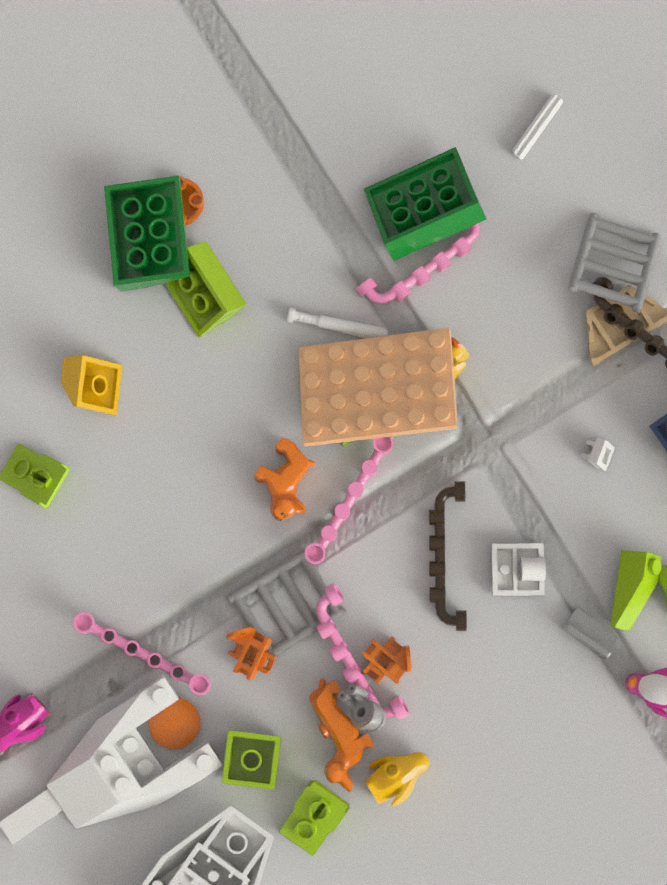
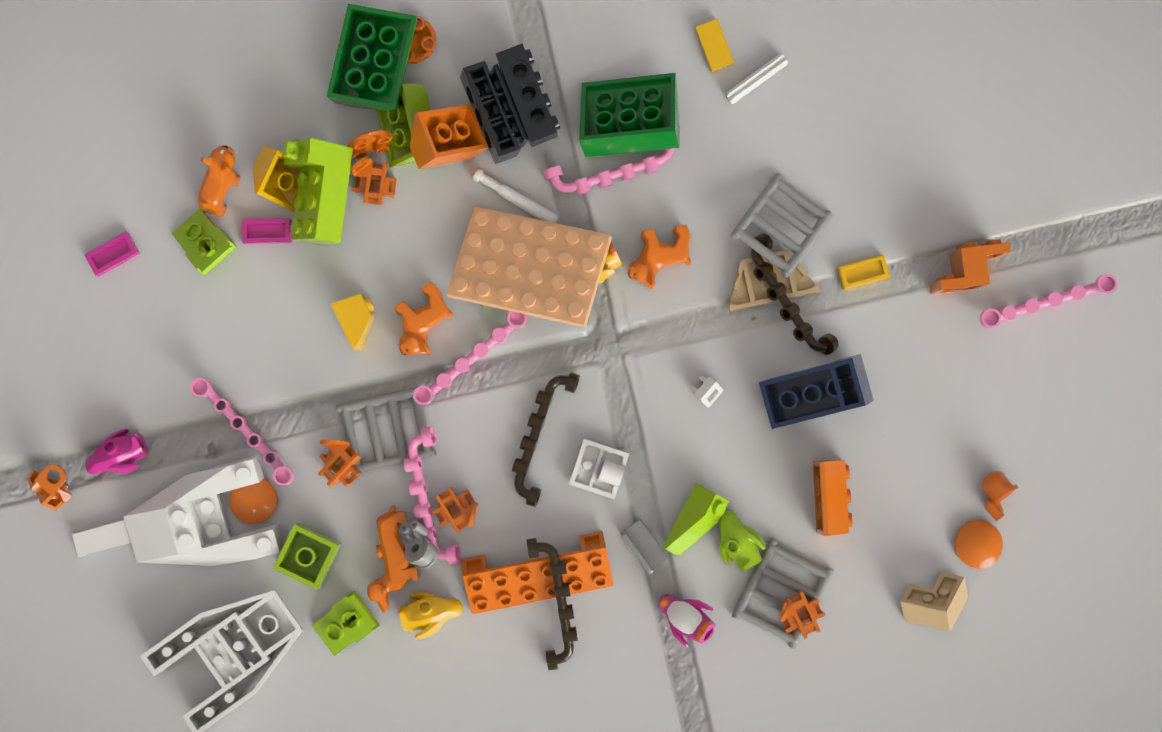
camera: 25 degrees right, 5 degrees up
(30, 406) = (218, 180): none -> orange animal
(95, 443) = (266, 231): none -> dark pink tile
(138, 381) = (320, 189): none -> lime hinge
(171, 317) = (369, 142): none -> orange dish
(195, 358) = (364, 171): none -> orange piece
(218, 499) = (355, 318): none -> yellow slope
(249, 285) = (446, 136): none -> orange slope
(286, 244) = (488, 110): none -> black brick
(297, 184) = (519, 59): none -> black brick
(483, 108) = (714, 45): none -> yellow tile
(494, 702) = (533, 579): none -> orange bracket
(503, 332) = (659, 254): none -> orange animal
(525, 705) = (562, 591): none -> dark brown bar

